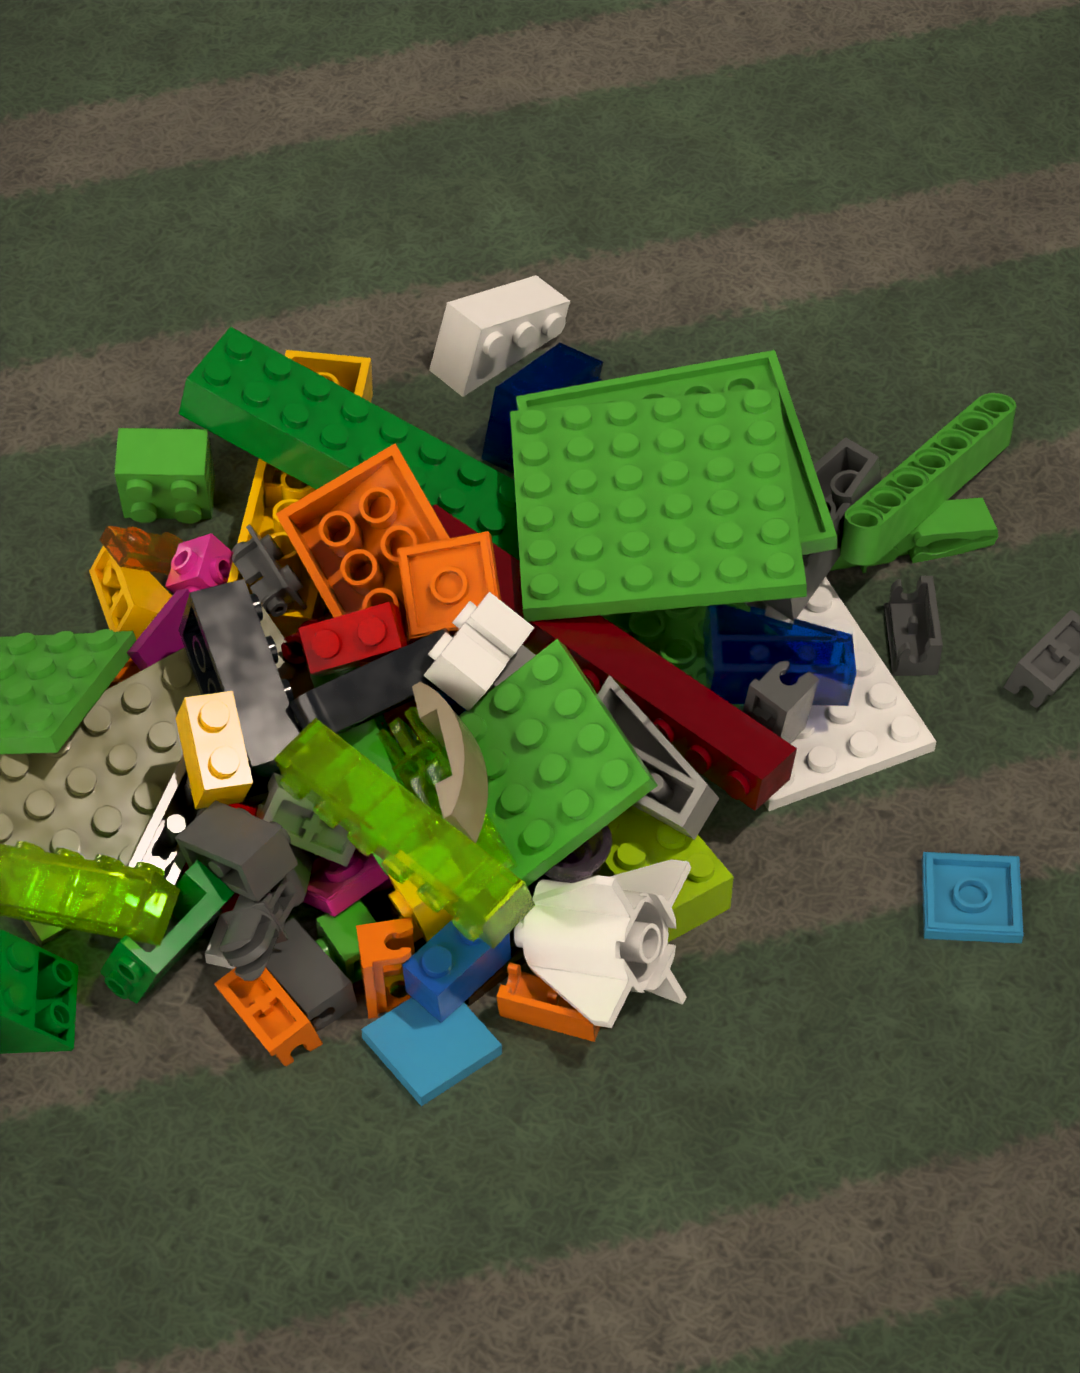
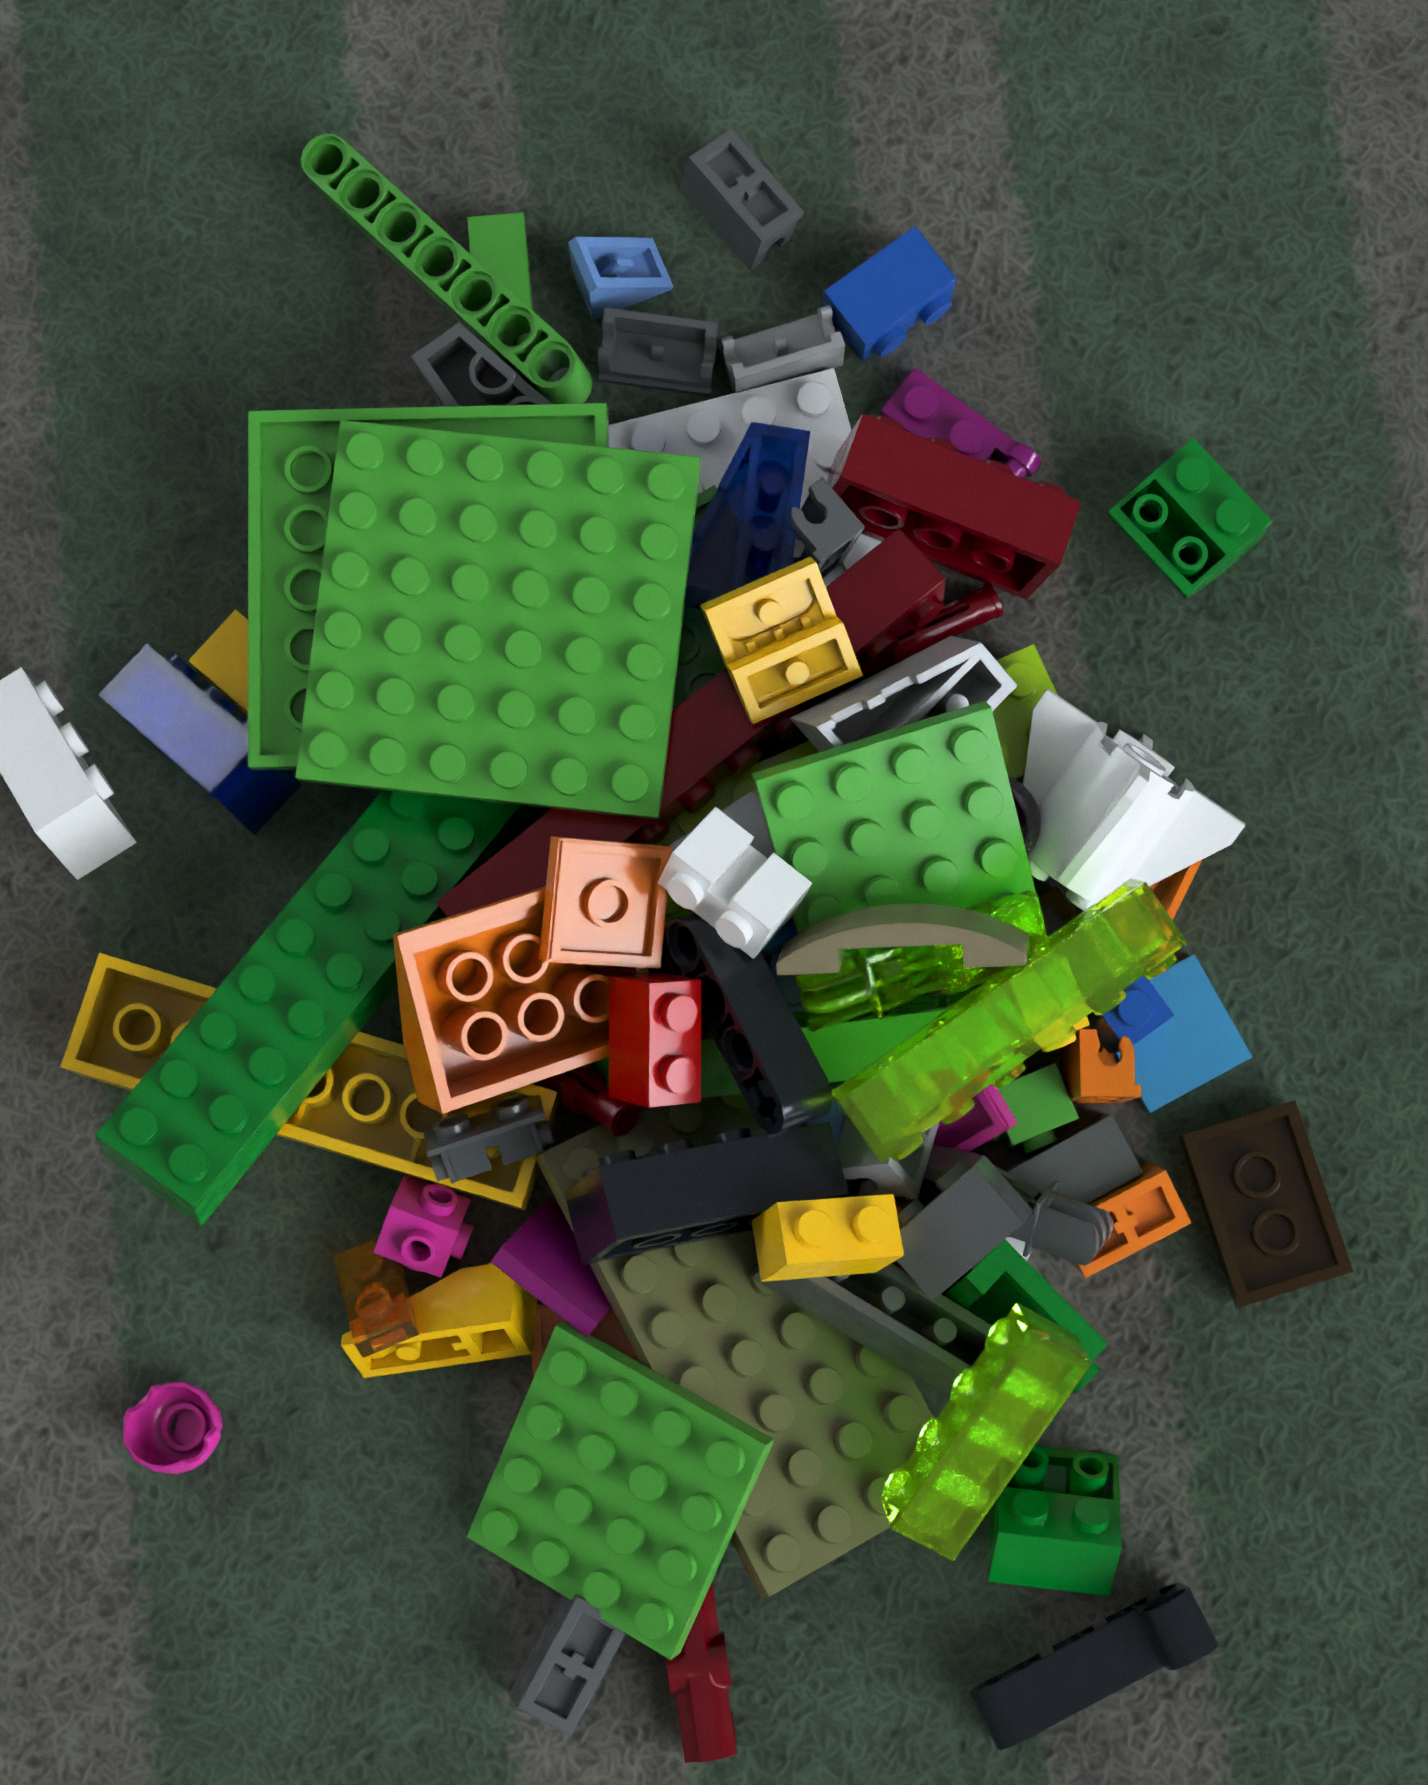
camera: 80 degrees left, 30 degrees up
(37, 452) = (149, 1432): none -> dark pink hair
(165, 474) = (257, 1258): bright green brick -> none
(296, 1121) = (1265, 1204): none -> dark brown plate
(680, 670) = (781, 640): none -> yellow slope
(743, 837) = (954, 618): none -> dark red pin
(833, 800) = (953, 506): none -> dark red brick
(871, 986) = (1190, 519): none -> green slope
(904, 834) = (935, 413): none -> magenta plate
(938, 706) = (783, 352): none -> light grey hinge
(968, 590) = (617, 271): none -> medium blue slope
(972, 897) = (1058, 383): dark azure tile -> none
(1007, 765) = (890, 295): none -> blue brick

